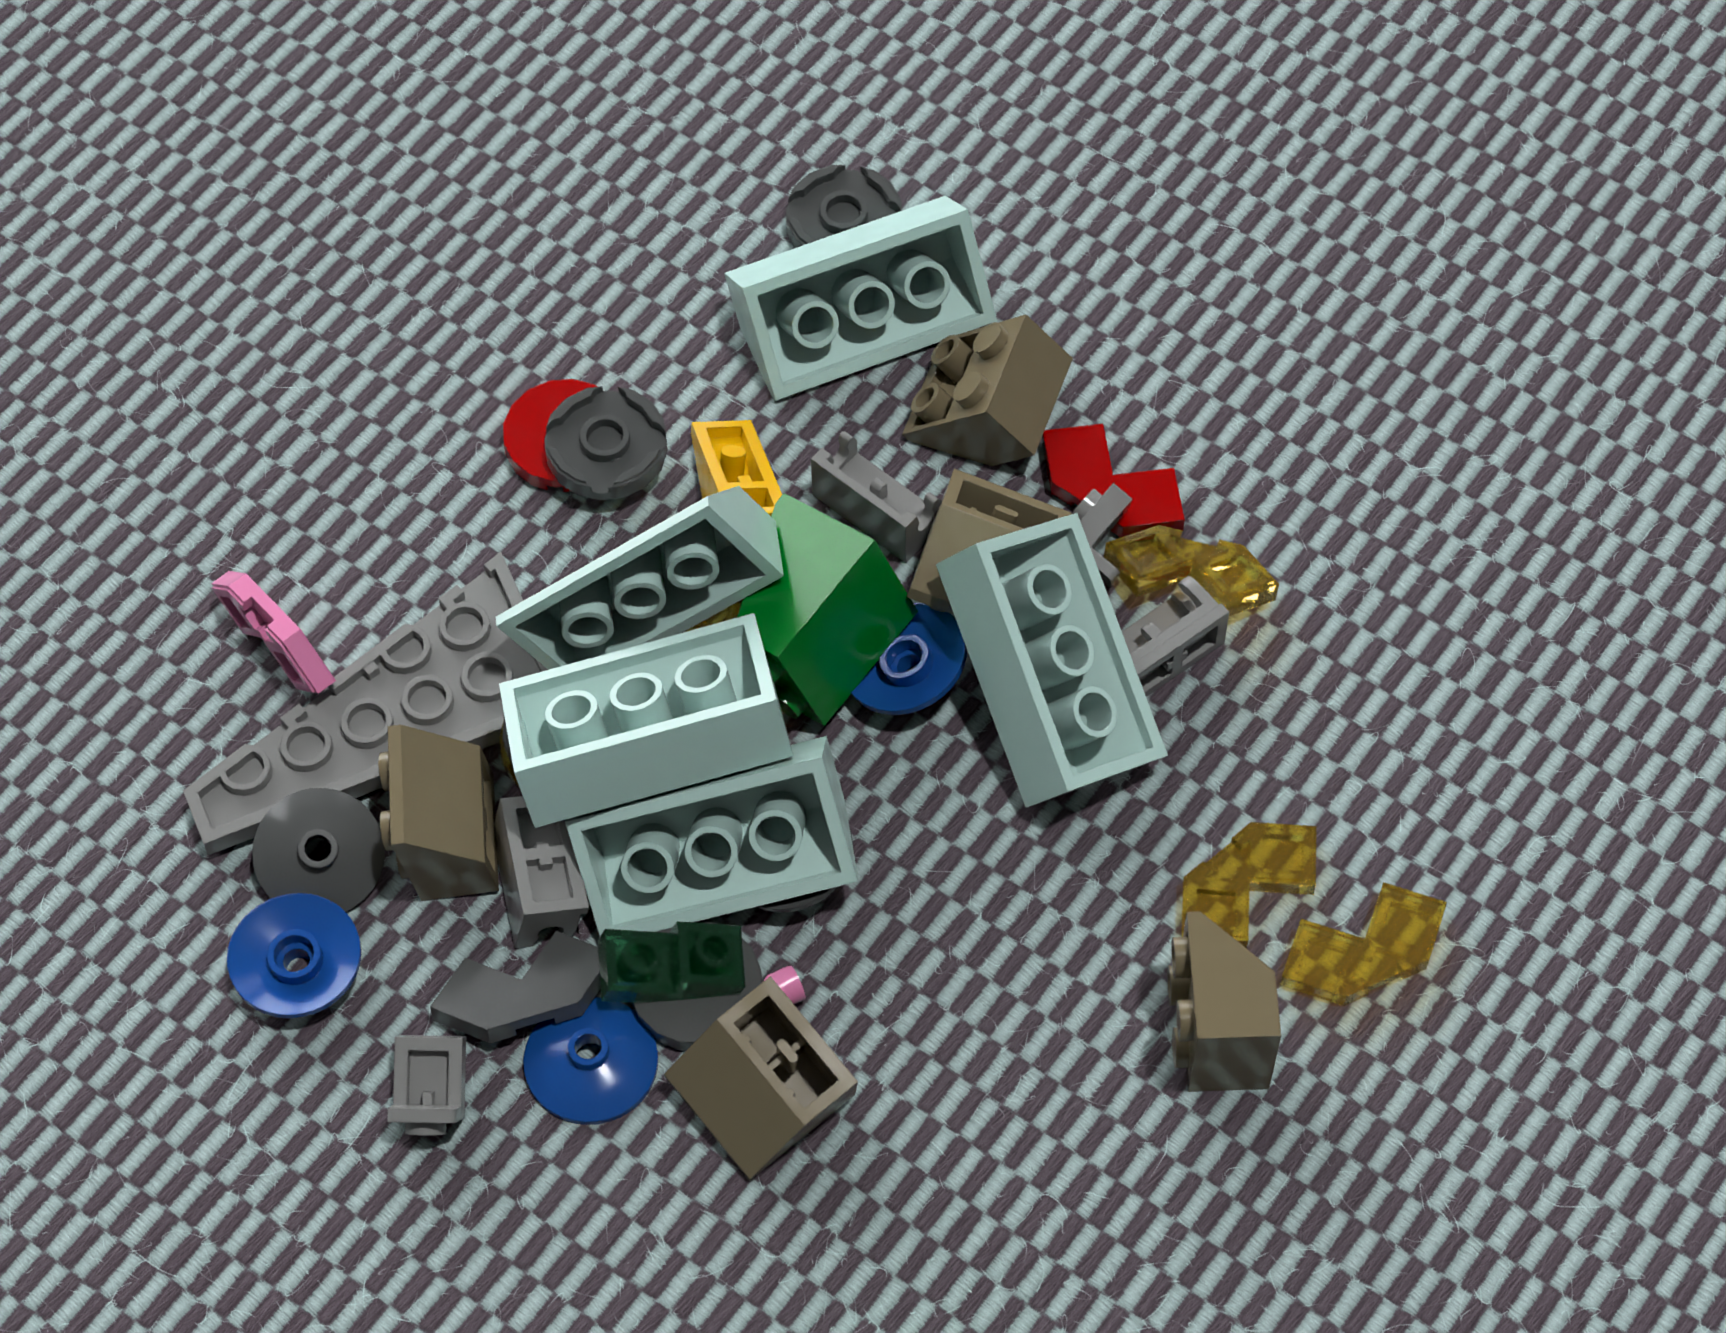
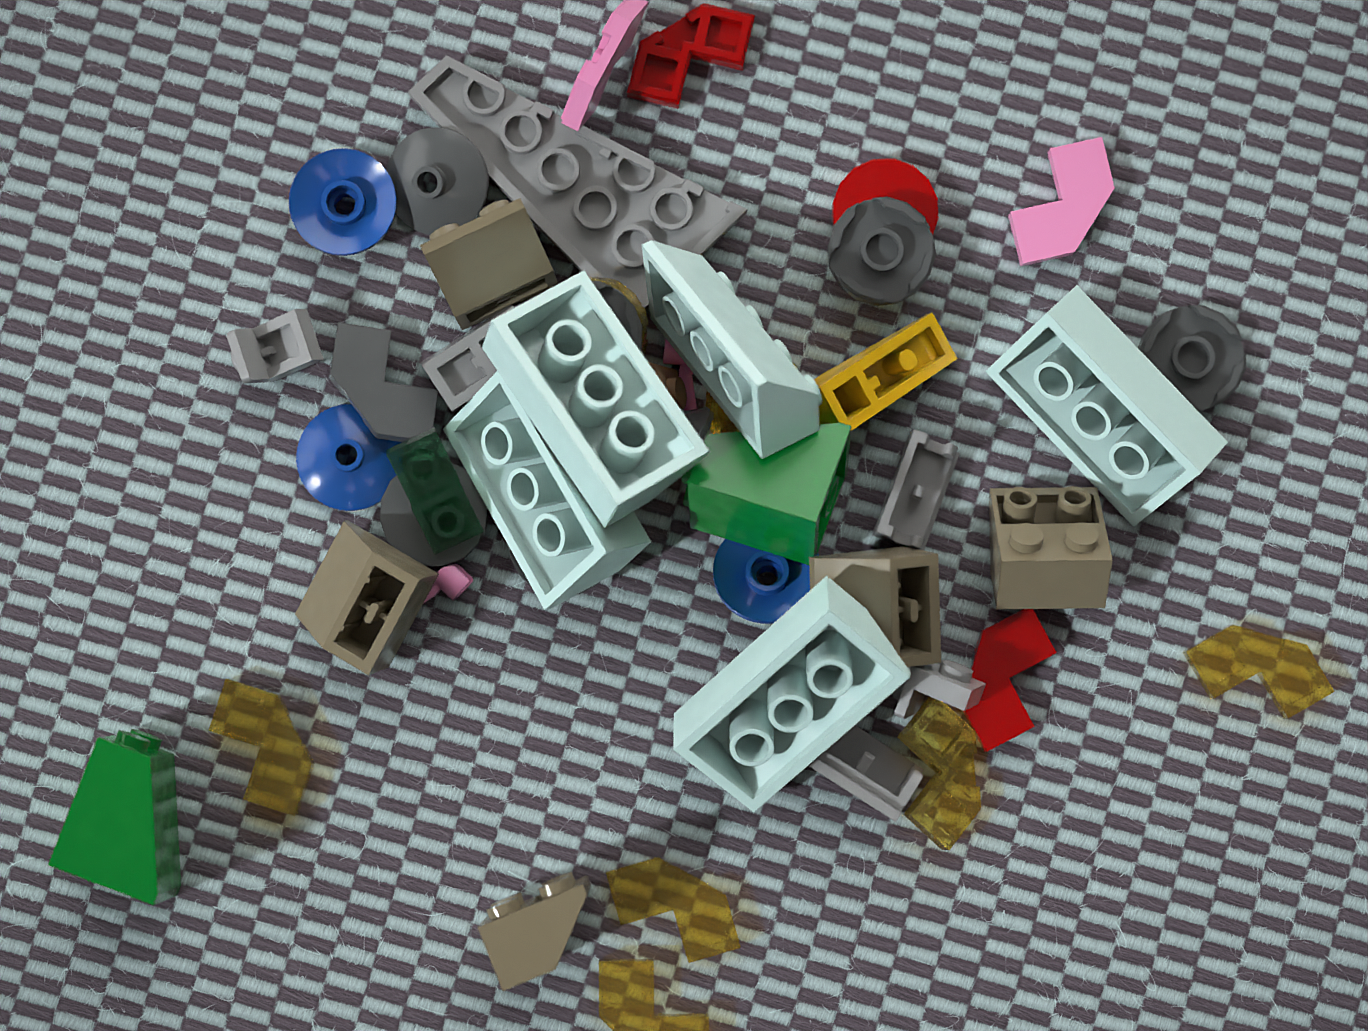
camera: 65 degrees right, 25 degrees up
(288, 545) = (705, 35): none -> red tile
(627, 253) = (1082, 188): none -> bright pink tile
(916, 1248) = (282, 760): none -> clear yellow tile
(1193, 236) = (1282, 665): none -> clear yellow tile

